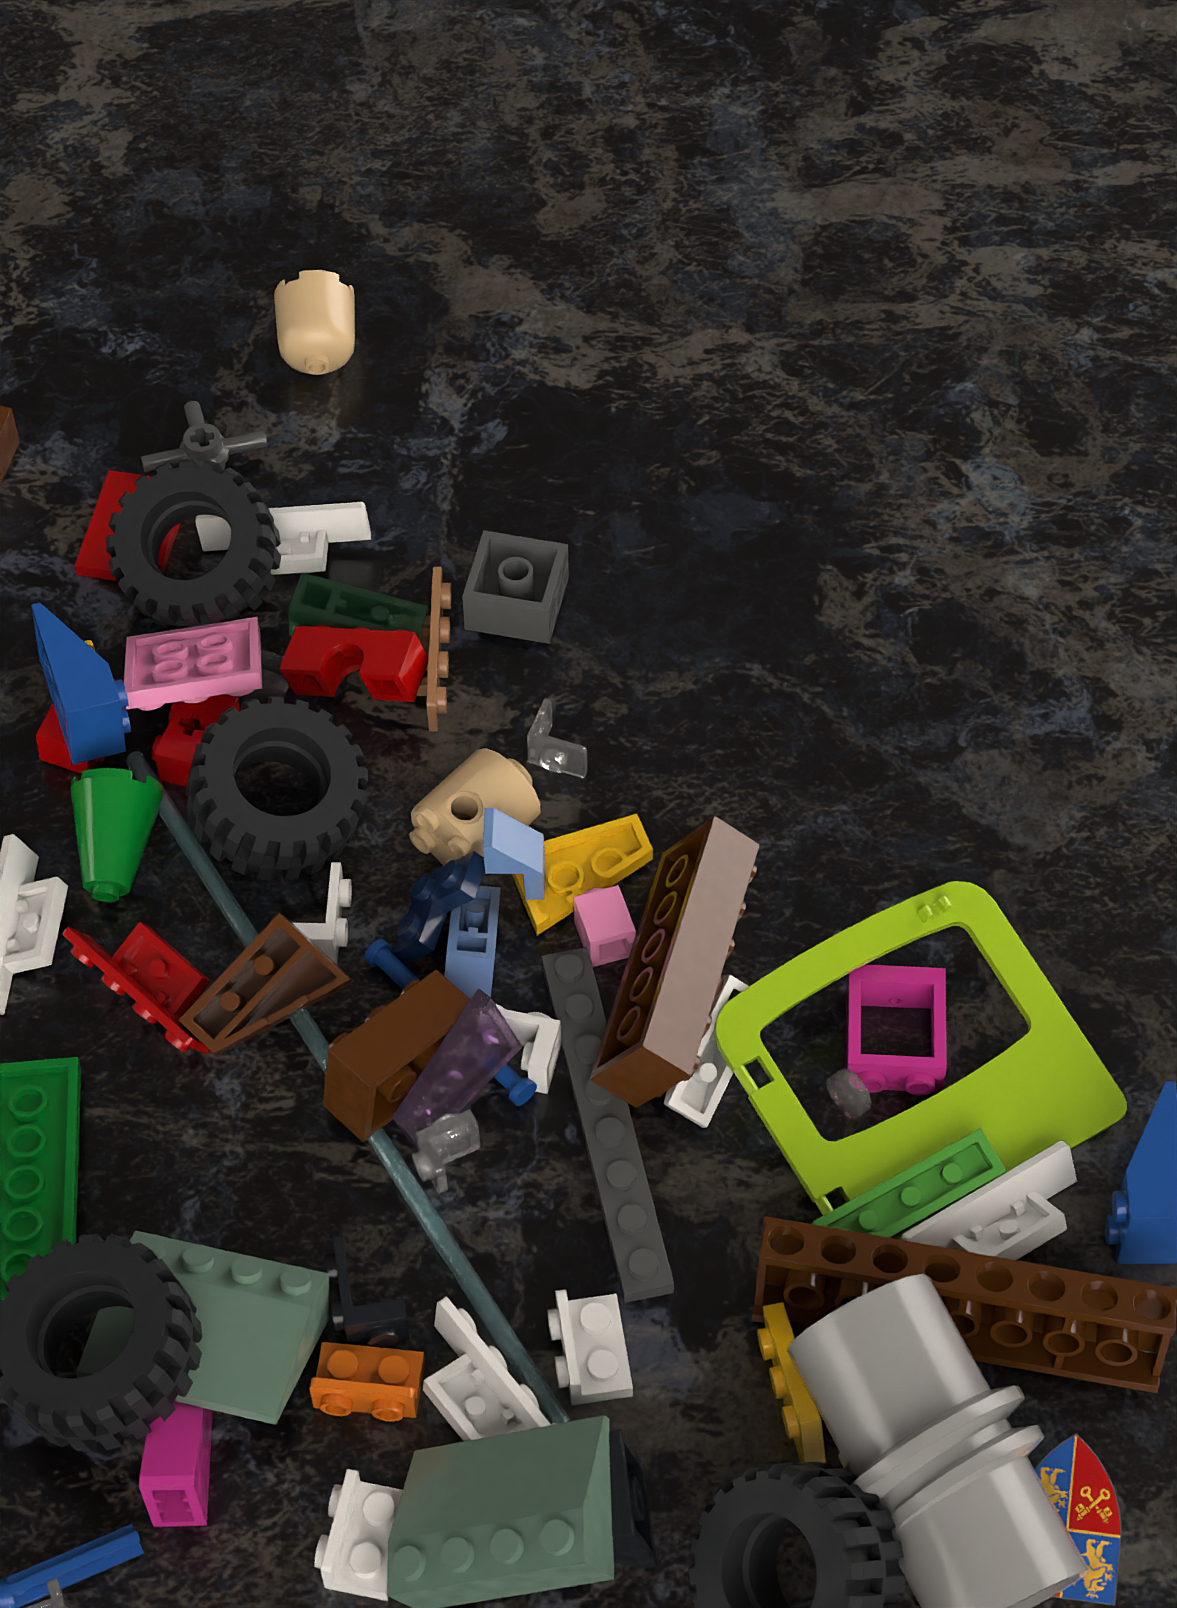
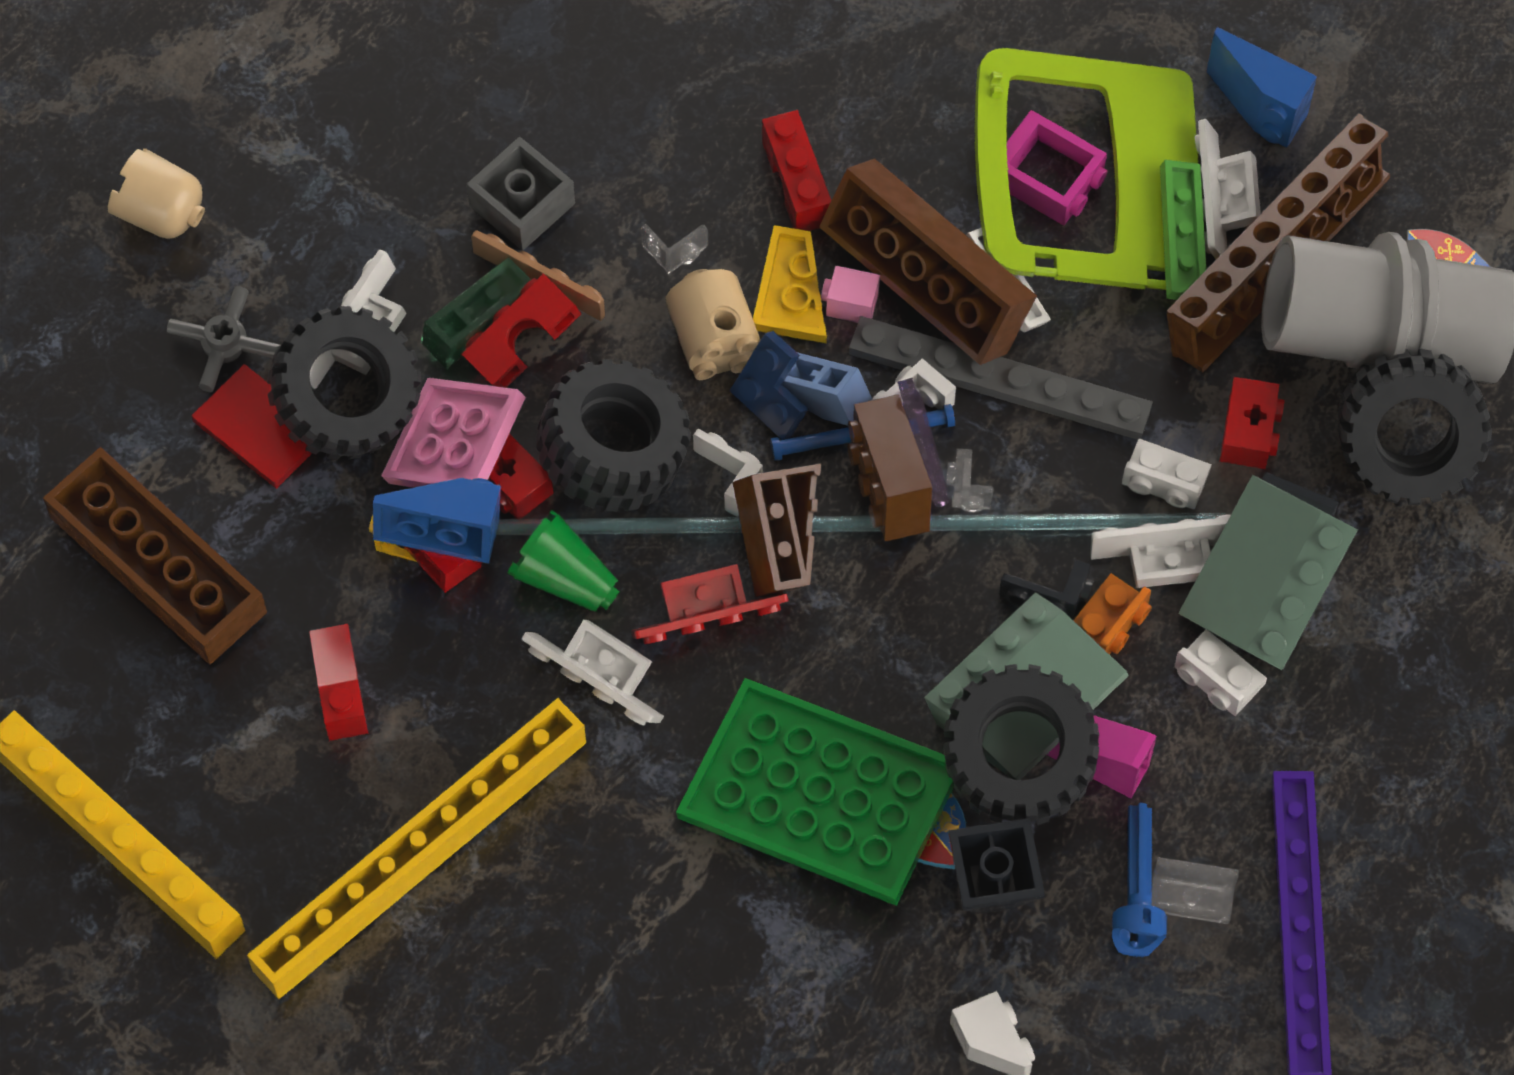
camera: 60 degrees left, 10 degrees up
(514, 849) = (779, 310): medium blue slope -> none
(727, 1380) = (1249, 403): none -> red brick
(733, 779) = (801, 177): none -> red arch
(800, 1412) = (1296, 373): yellow wing -> none
(849, 1093) = (1079, 222): clear tile -> none

